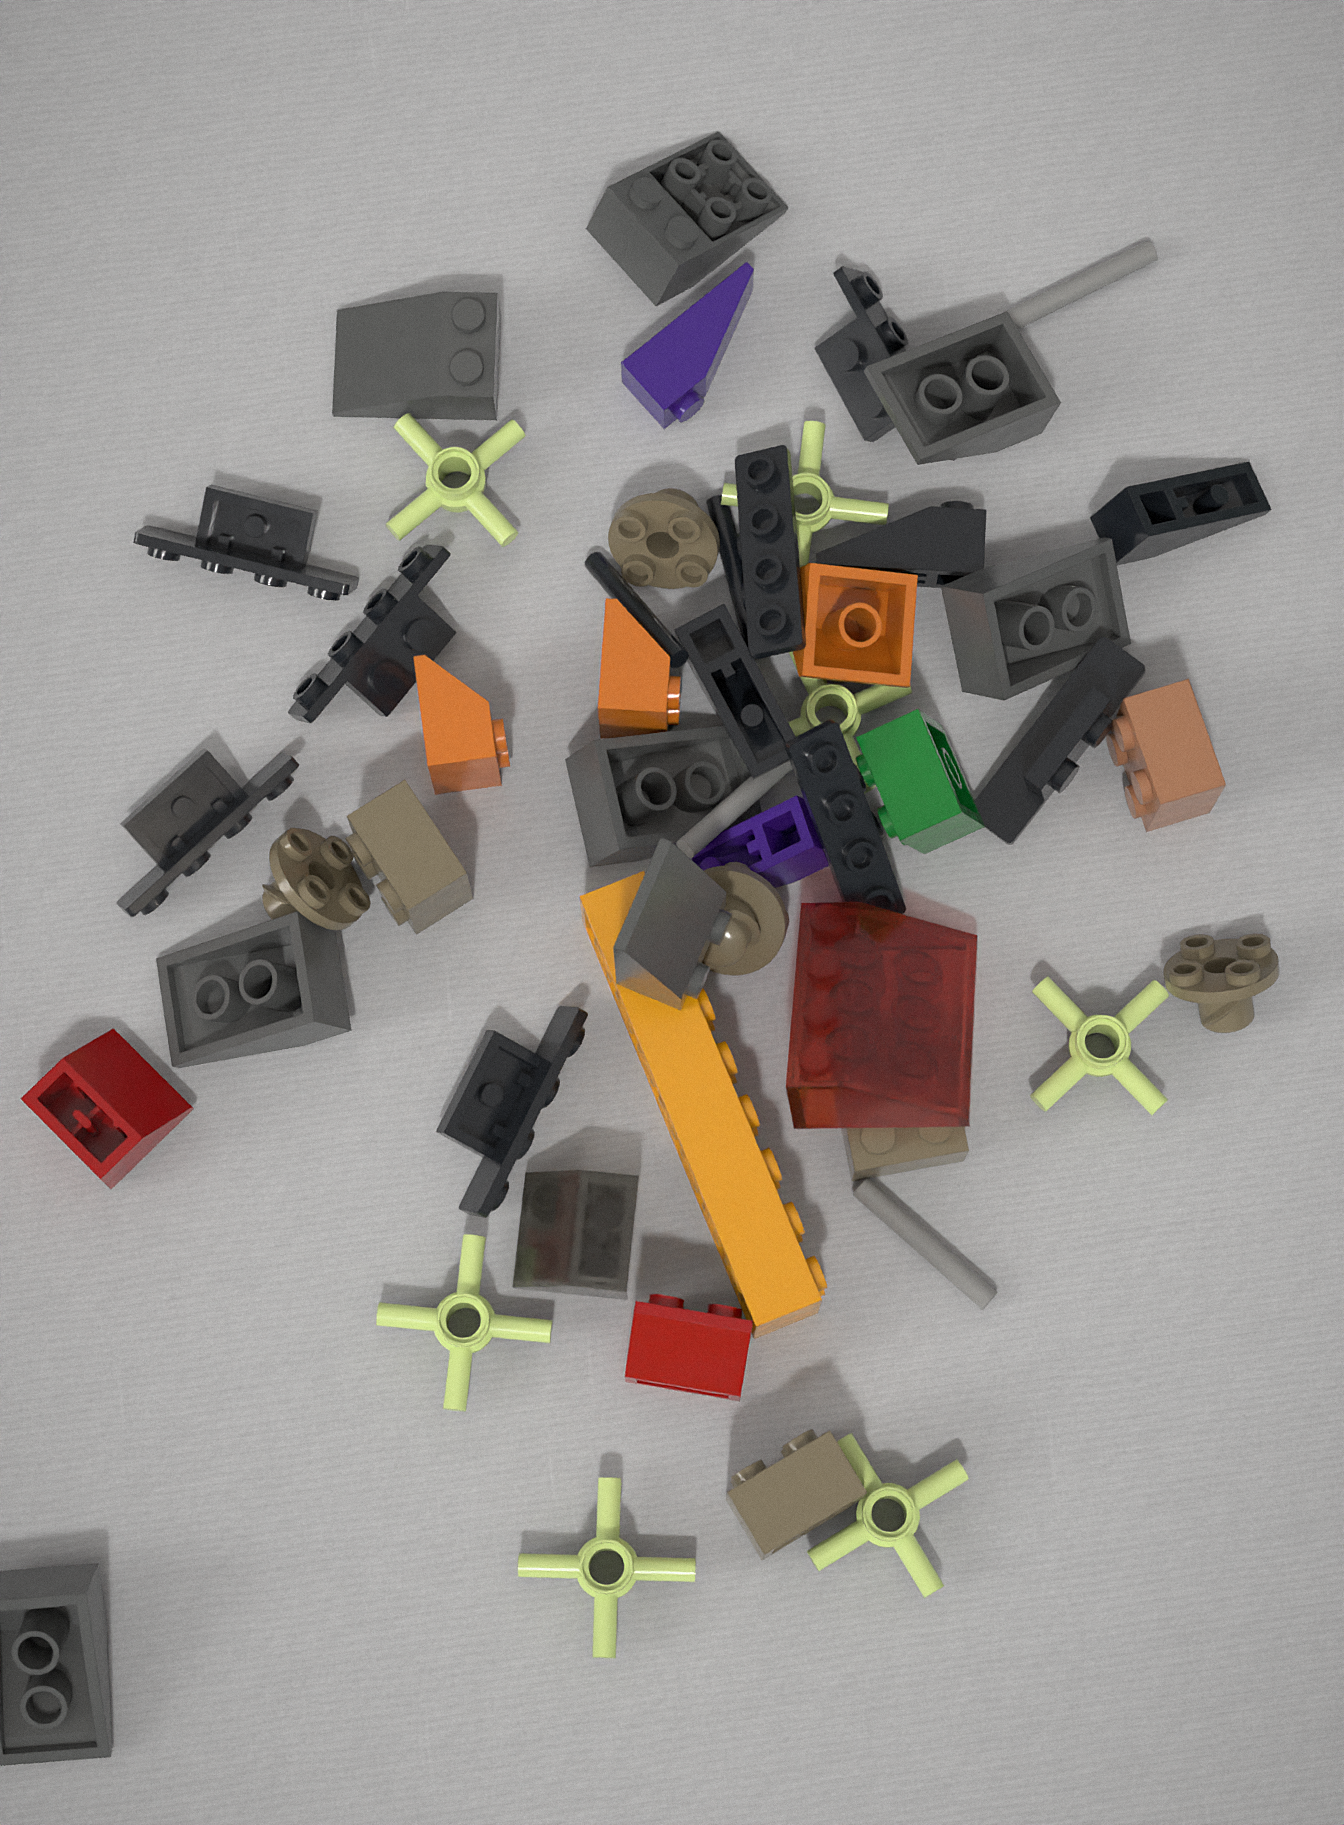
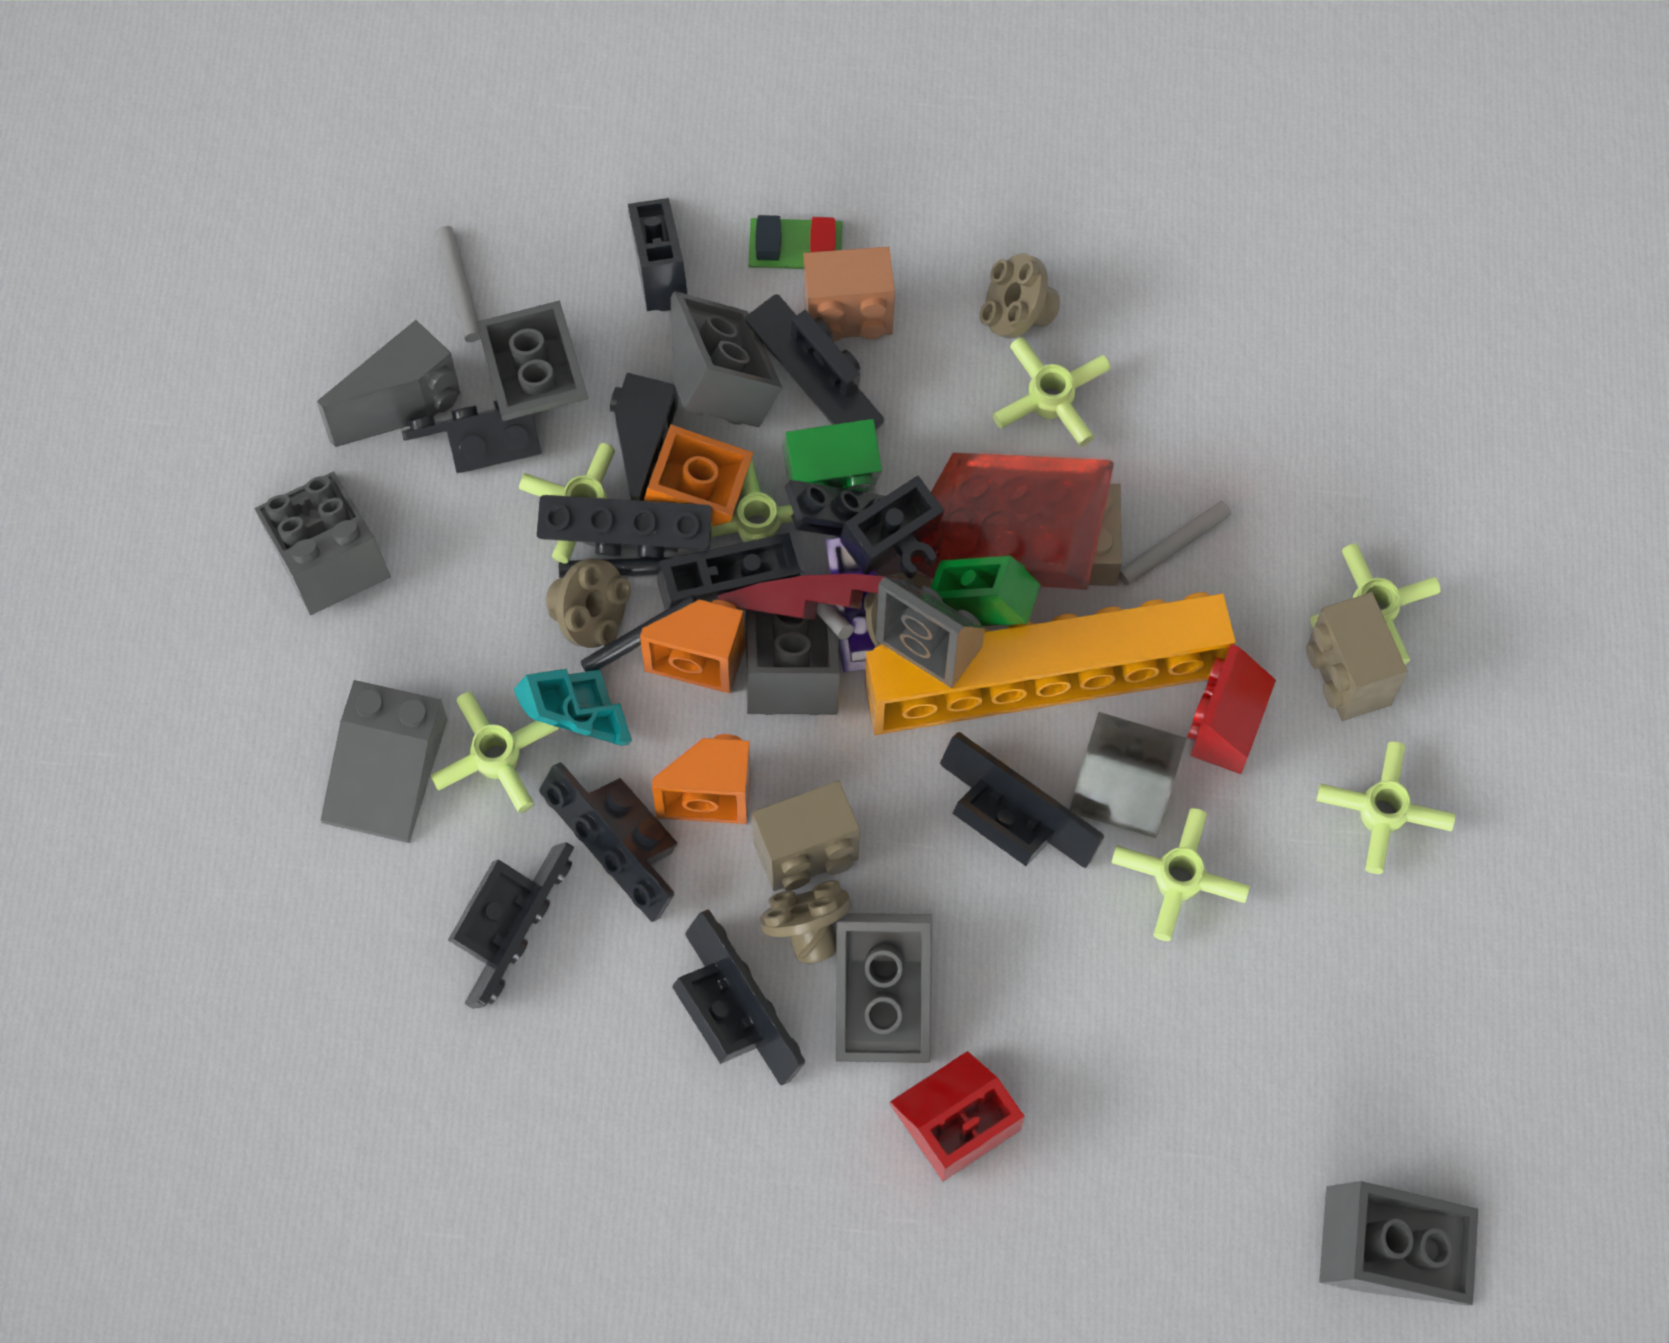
camera: 80 degrees left, 10 degrees down
(529, 555) = (574, 703): none -> teal slope
(680, 361) = (440, 560): dark purple slope -> none
(713, 784) = (802, 594): none -> dark red slope
(753, 997) = (989, 588): none -> green brick
(810, 867) = (894, 529): none -> black brick
(901, 241) = (397, 384): none -> dark grey slope
(1247, 683) = (784, 241): none -> piece

